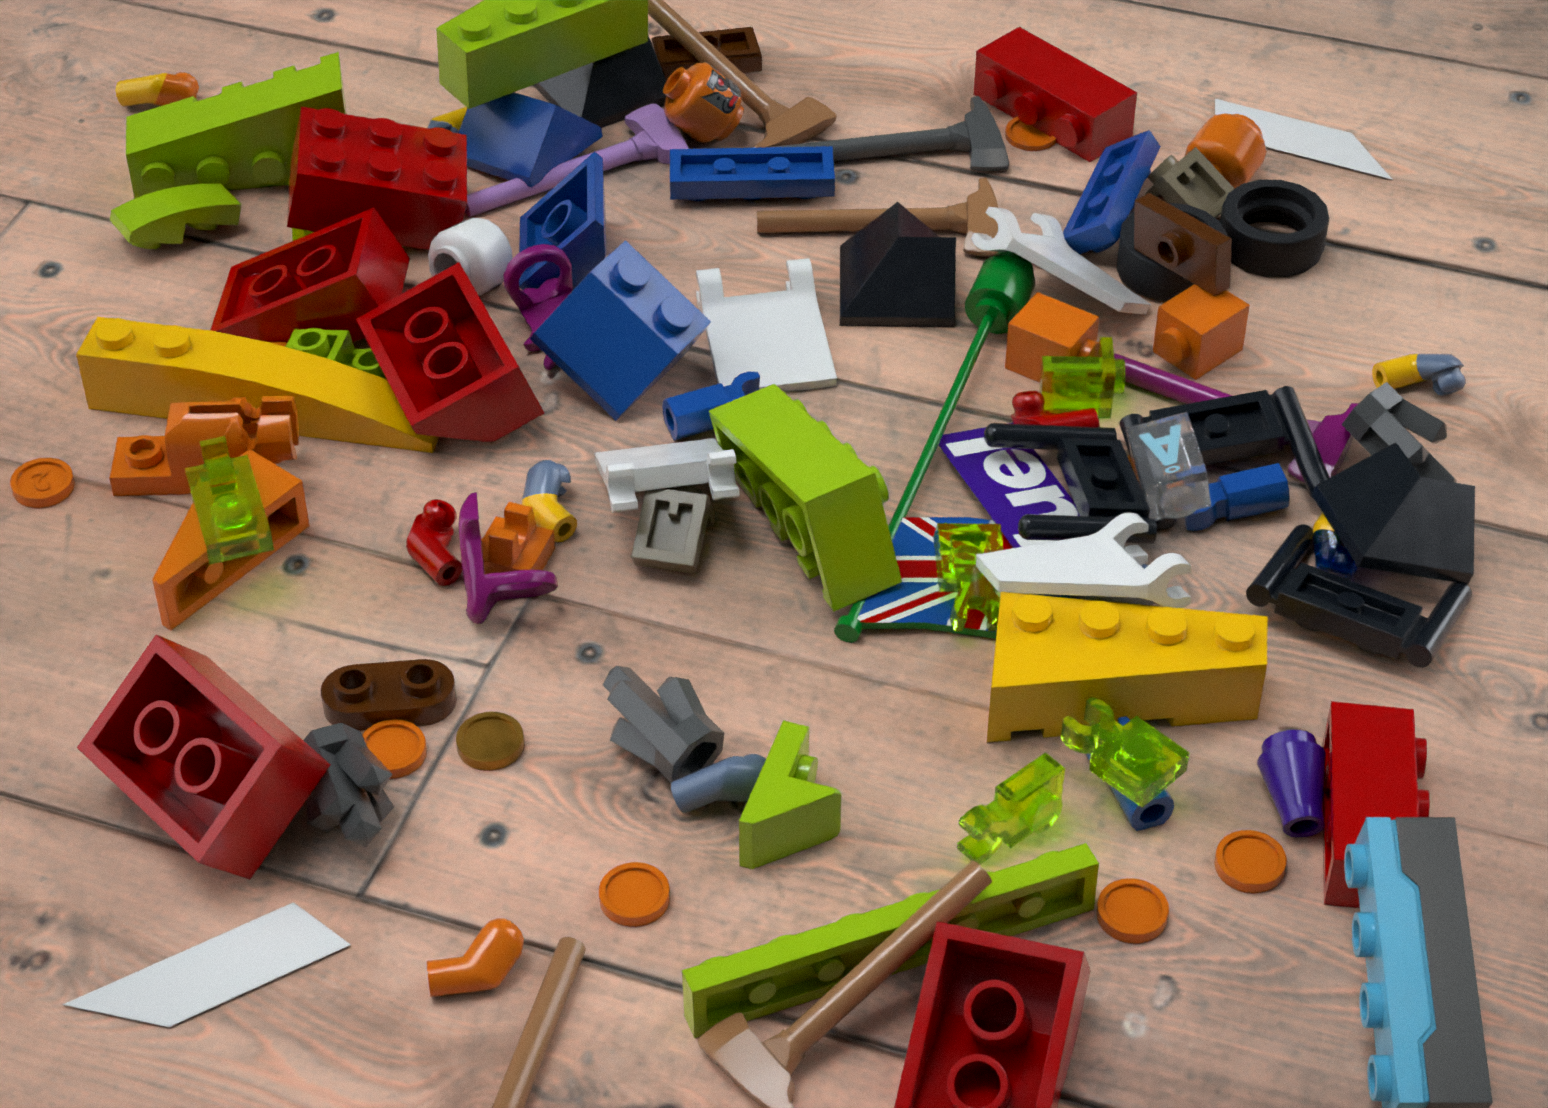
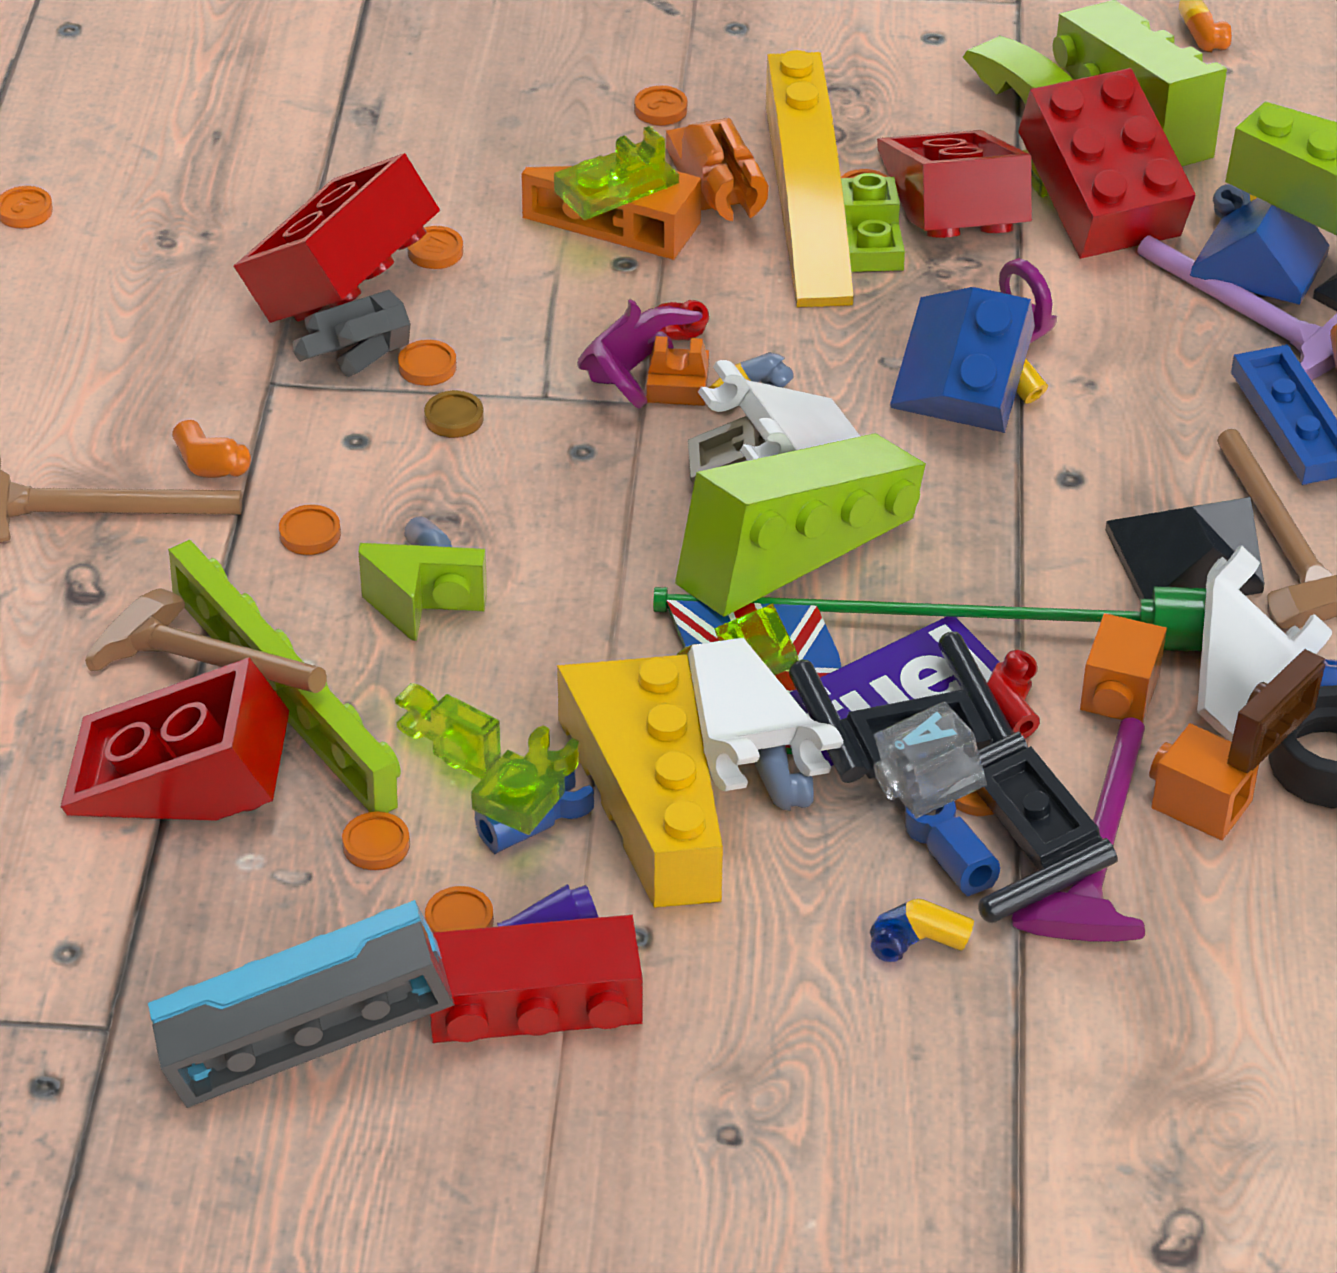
camera: 75 degrees right, 0 degrees up
(216, 969) = (180, 330): white sticker -> none
(381, 691) = (482, 344): reddish brown plate -> none
(449, 361) = (878, 267): red slope -> none
(479, 249) = (1053, 249): white head -> none
(572, 220) = (1125, 316): blue slope -> none
(665, 729) = (481, 494): dark grey rock -> none
(689, 412) = (916, 442): blue bar -> none
(768, 332) = (1052, 473): white flag -> none
(1083, 382) = (1067, 705): clear neon green bracket -> none
(1351, 610) = (807, 952): black plate -> none
(1384, 420) = (1078, 954): dark grey rock -> none
(1401, 520) = (937, 960): black slope -> none
(1416, 368) = (1242, 978): arm -> none

